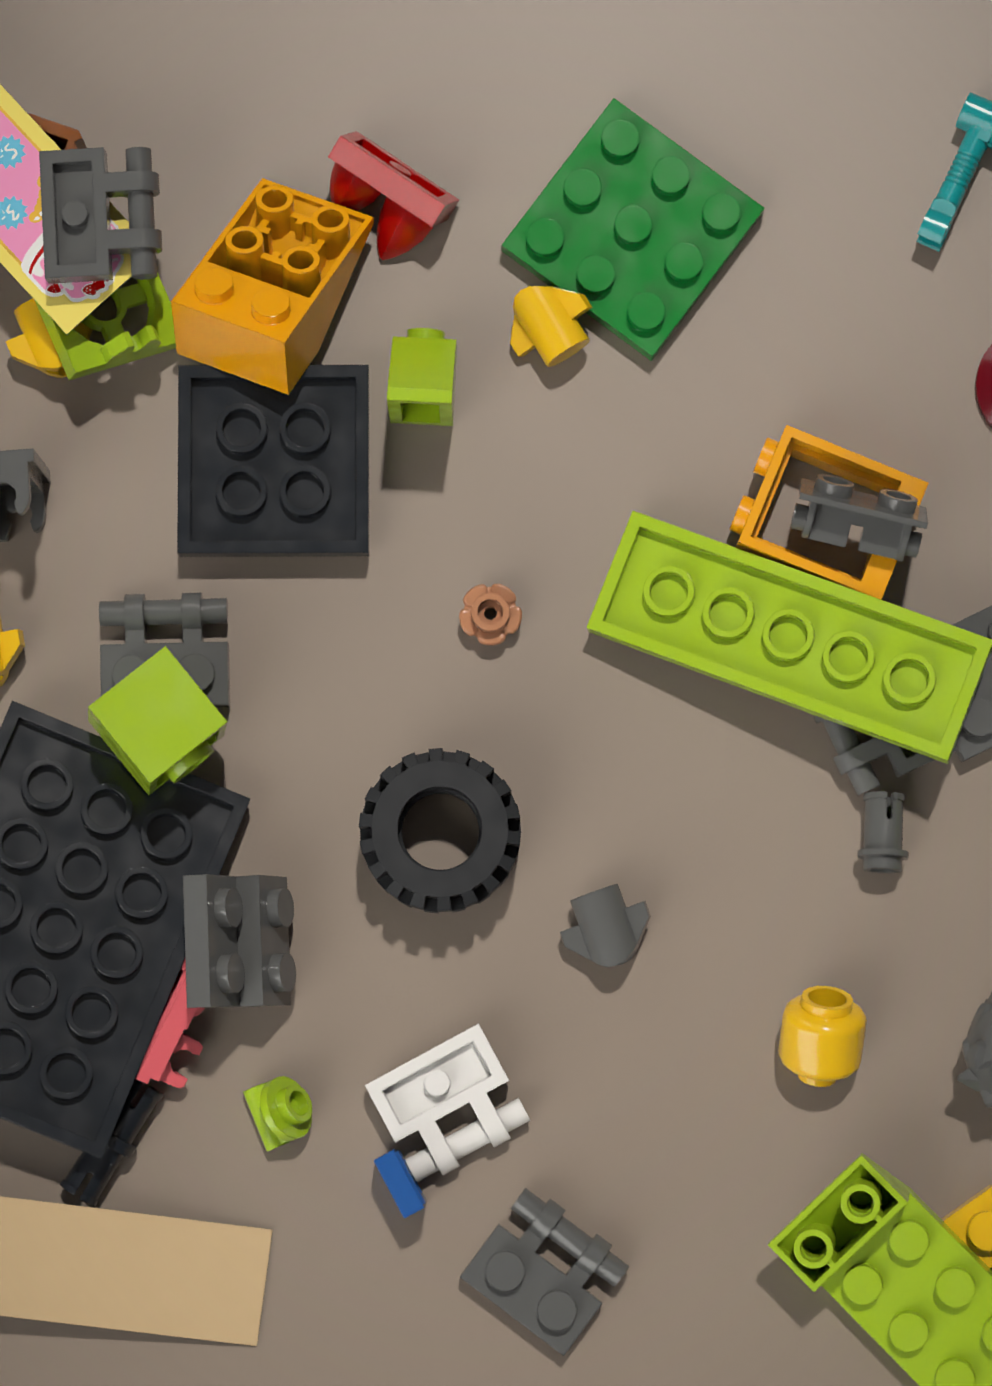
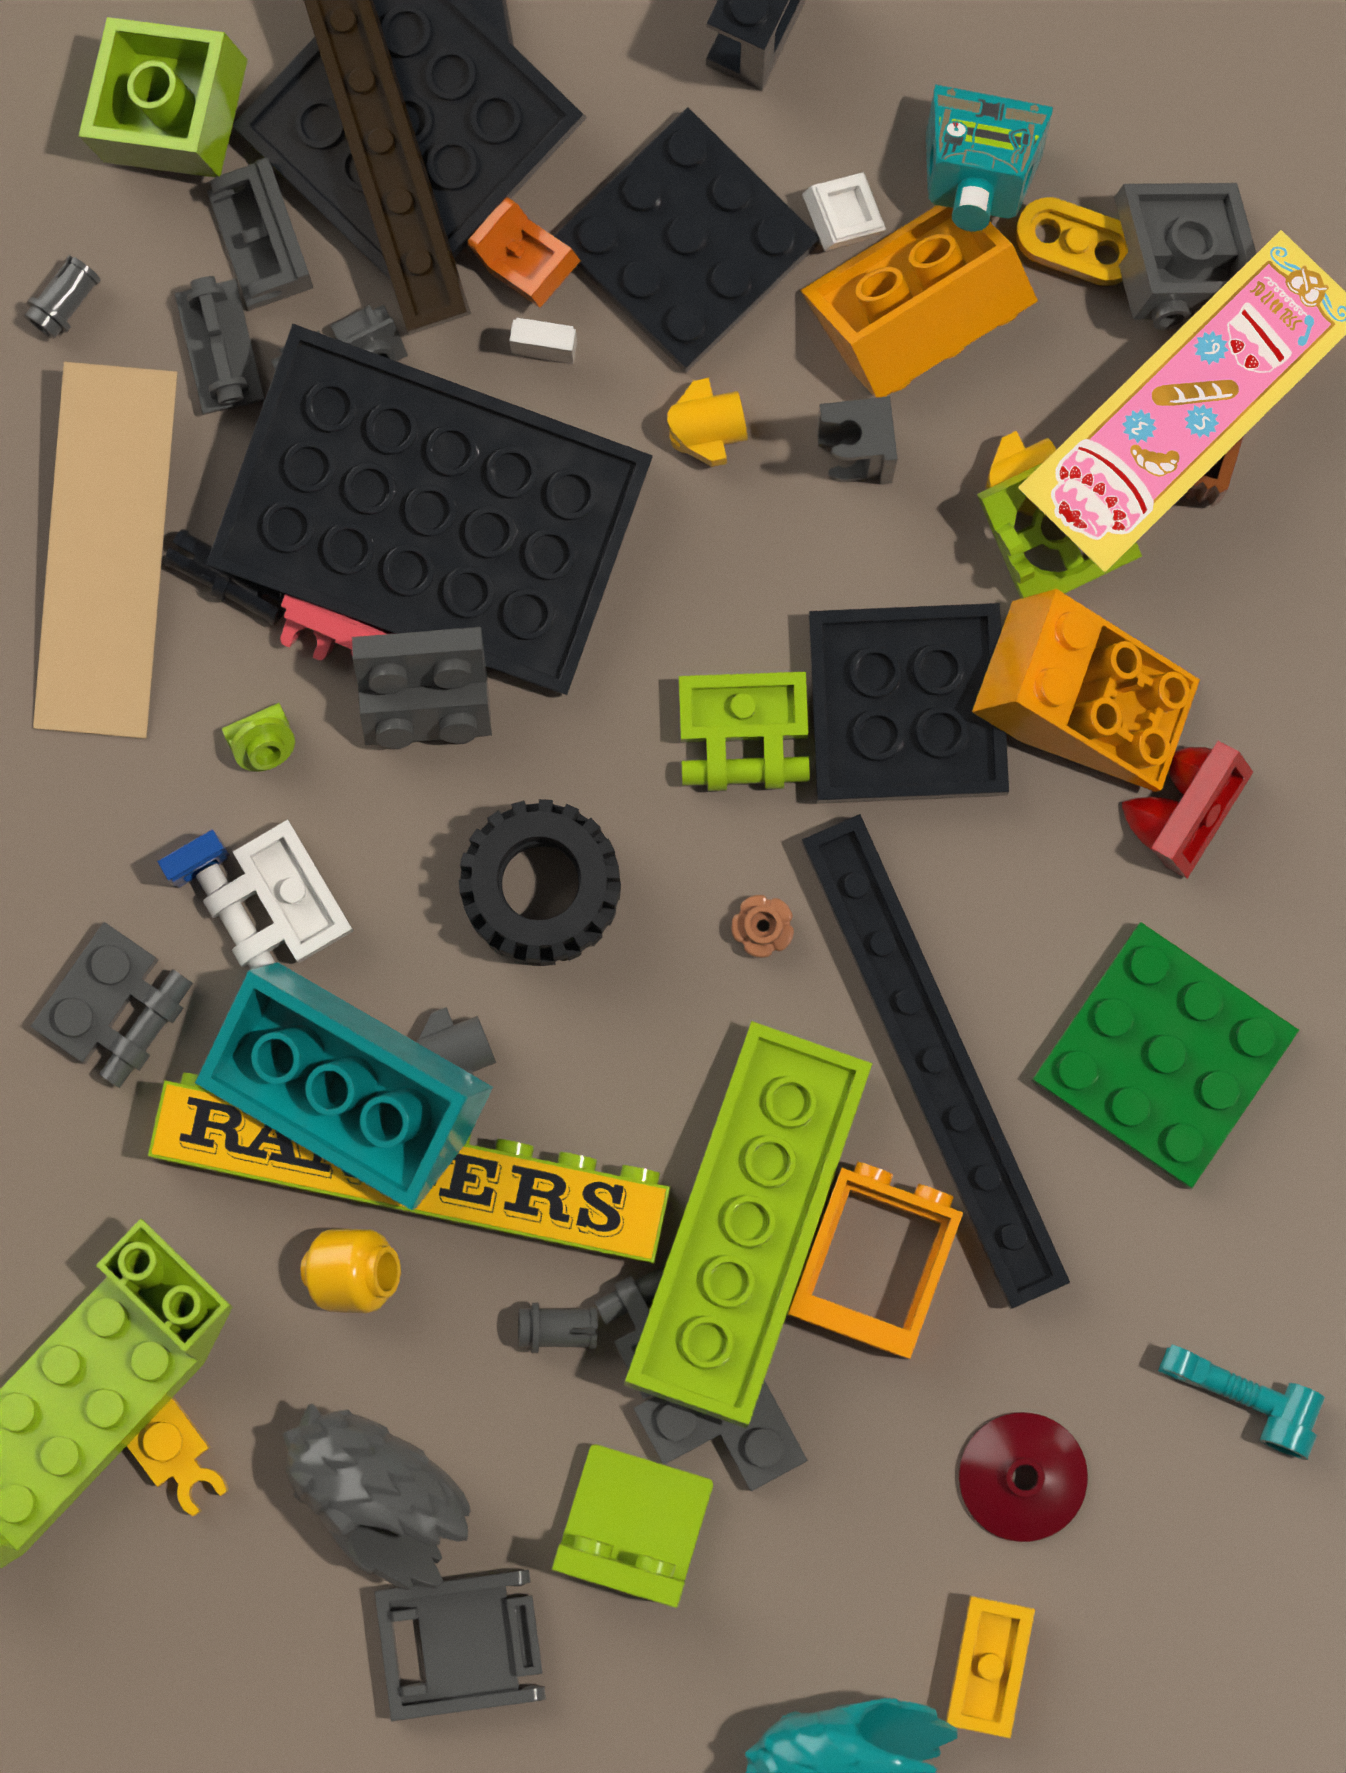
camera: 90 degrees right, 0 degrees up
(77, 214) = (1137, 491): dark grey plate -> none
(158, 722) = (632, 596): lime head -> none
(204, 661) = (690, 605): dark grey plate -> none
(272, 624) = (738, 709): none -> lime plate
(422, 378) = (998, 845): lime slope -> none
(548, 321) = (1062, 973): yellow piece -> none
(631, 450) = (935, 1062): none -> black plate
(639, 1035) = (342, 1084): none -> teal slope
(724, 973) = (479, 1188): none -> brick
(884, 518) = (880, 1258): dark grey hinge -> none

